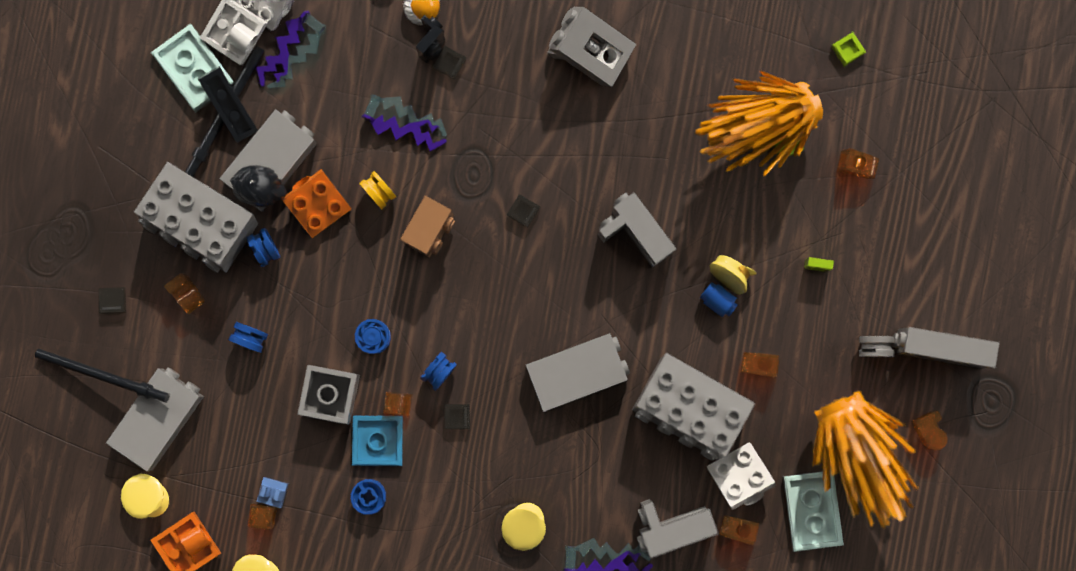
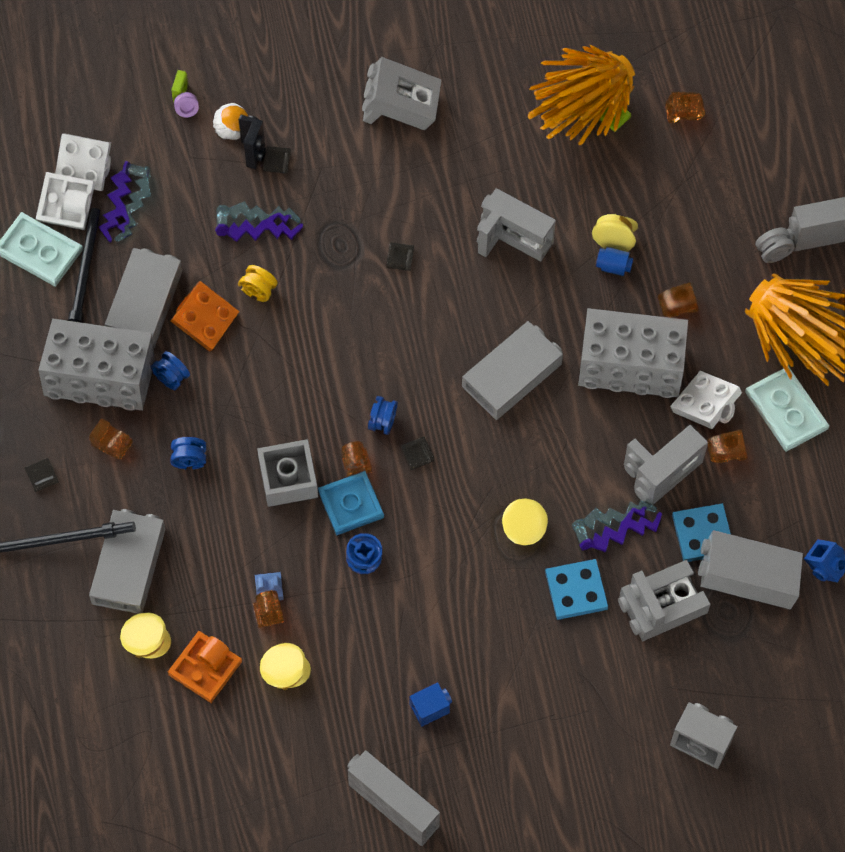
camera: 25 degrees left, 20 degrees down
(227, 104) = (86, 261): black hinge -> none
(257, 186) = (145, 311): black hair -> none
(372, 336) = (307, 412): blue wheel -> none
(428, 227) = (319, 294): medium nougat brick -> none
(818, 264) = (690, 199): lime tile -> none
(848, 49) = (631, 22): lime tile -> none

